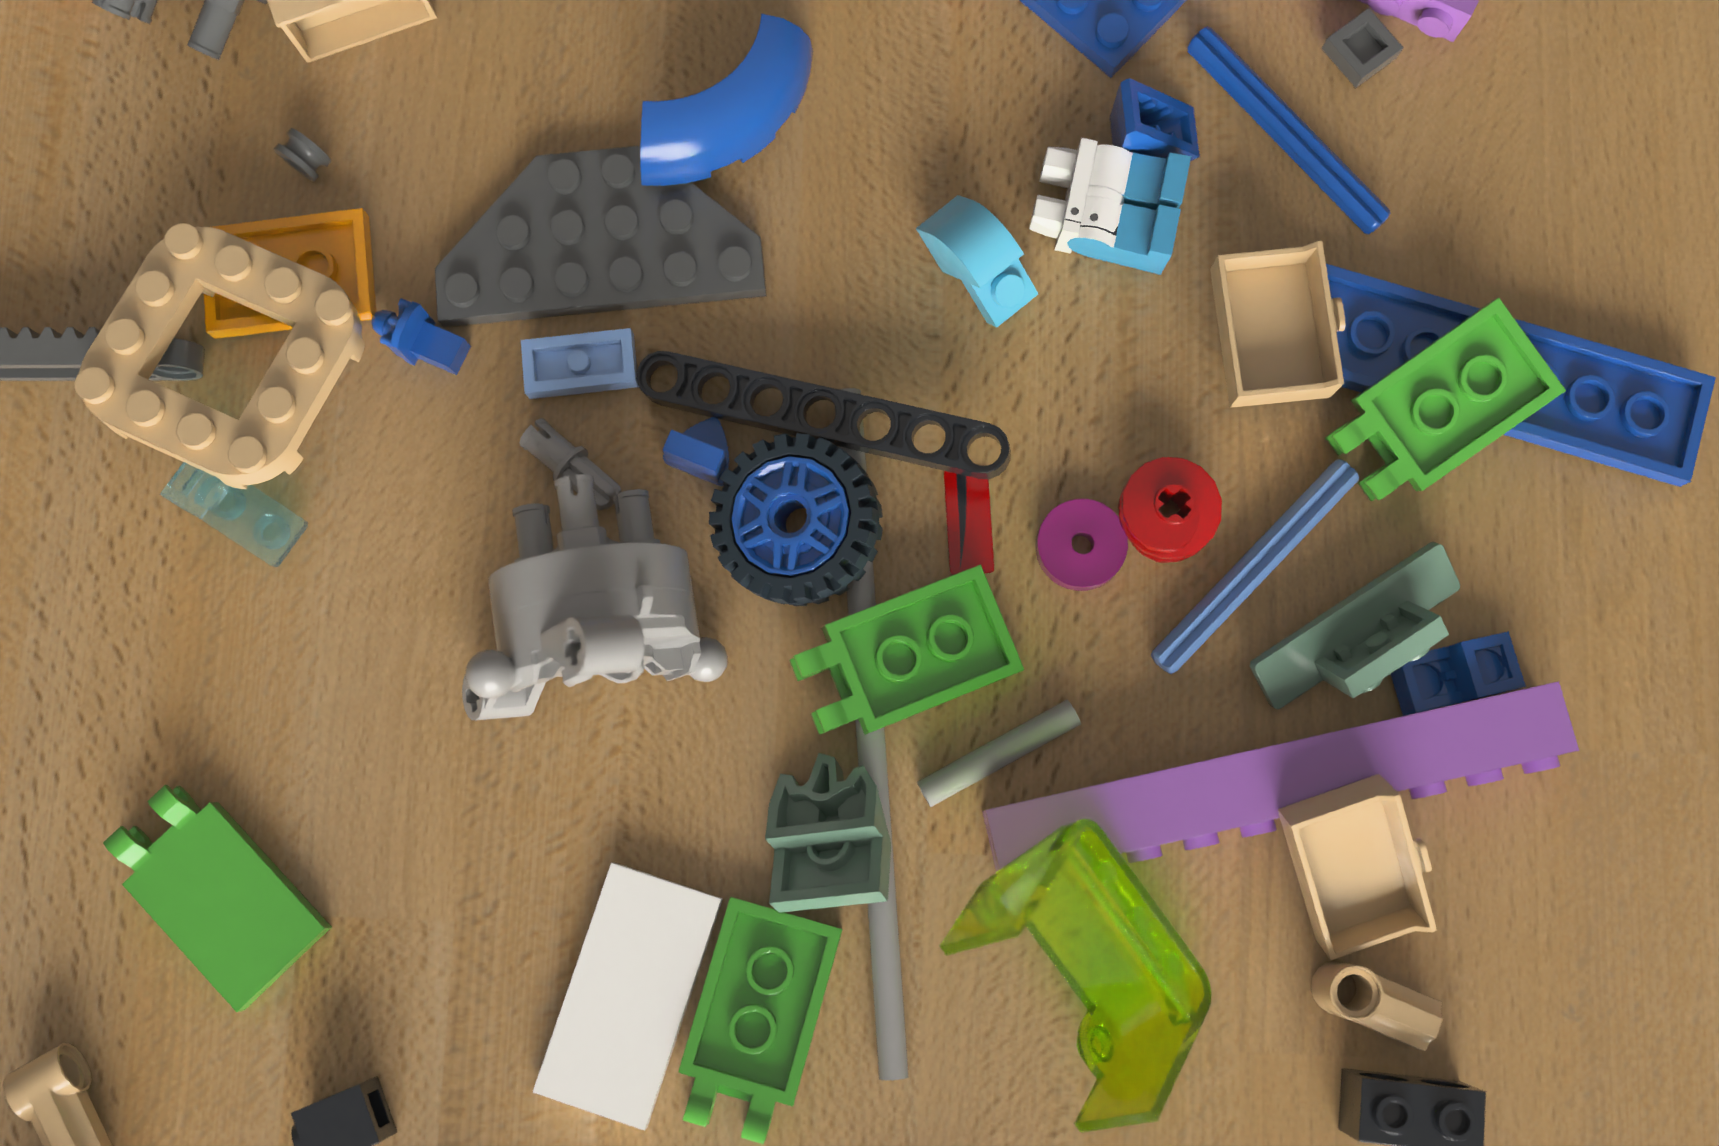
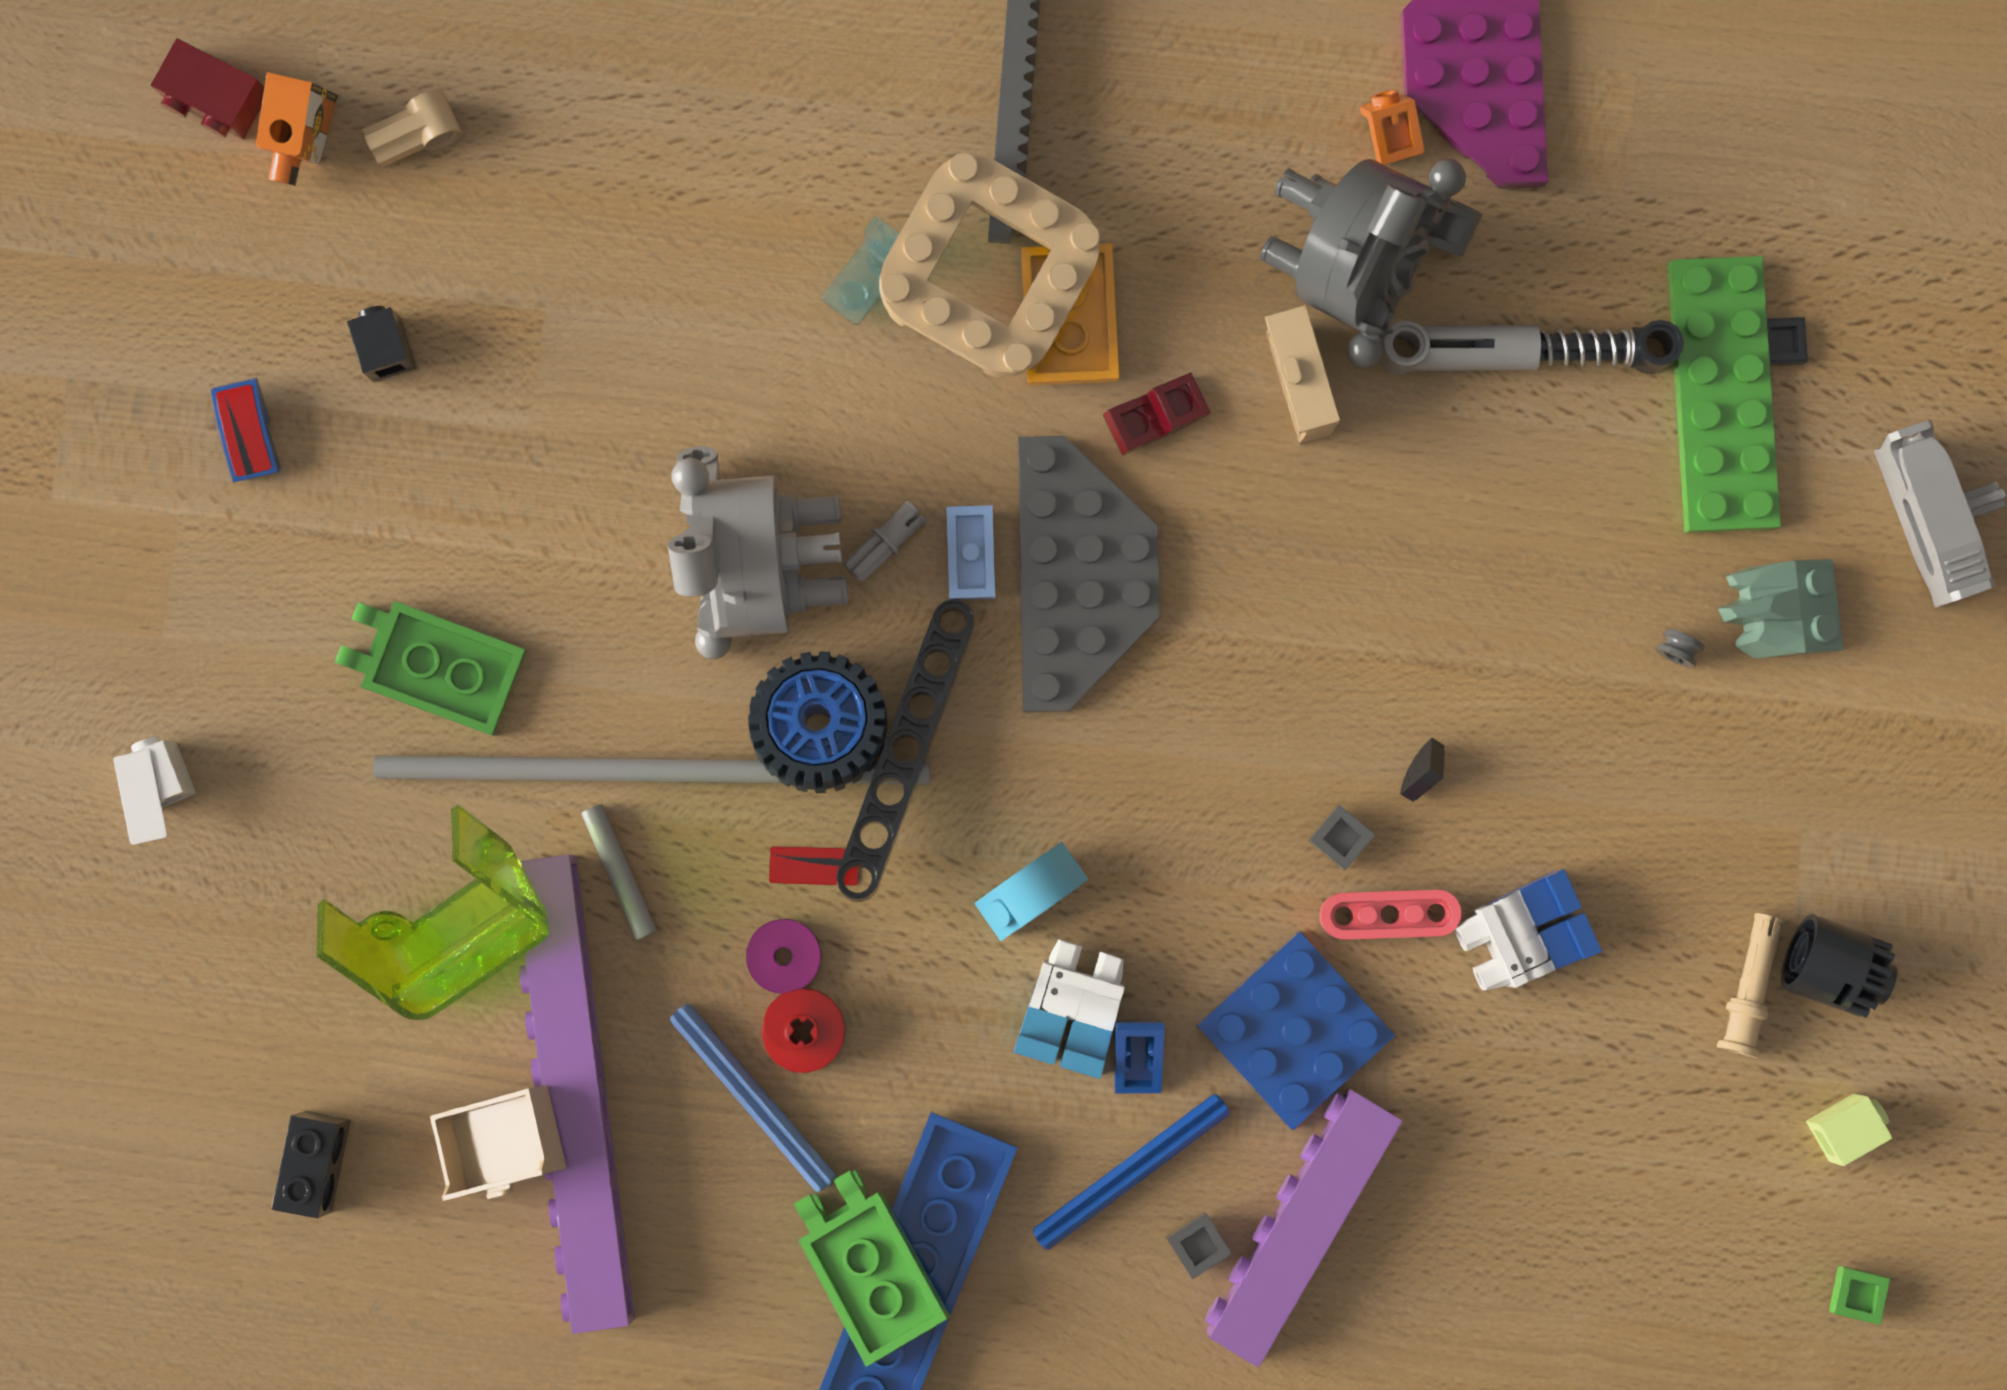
camera: 90 degrees right, 5 degrees up
(217, 896) = (563, 249): bright green tile -> none
(302, 154) = (1173, 328): dark grey bush -> none
(405, 170) = (1156, 413): none -> dark red slope
(416, 337) = (1006, 419): blue piece -> none
(628, 996) = (458, 565): white tile -> none
(699, 451) = (887, 648): blue tile -> none
(734, 117) = (1168, 697): blue brick -> none
(827, 840) = (560, 728): sand green plate -> none
(912, 653) = (702, 808): bright green tile -> none
(1277, 325) = (944, 1134): tan container -> none
(1363, 634) = (685, 1178): sand green bracket -> none
(1379, 1004) = (393, 1152): tan piece -> none
(1458, 674) = (649, 1251): blue slope -> none

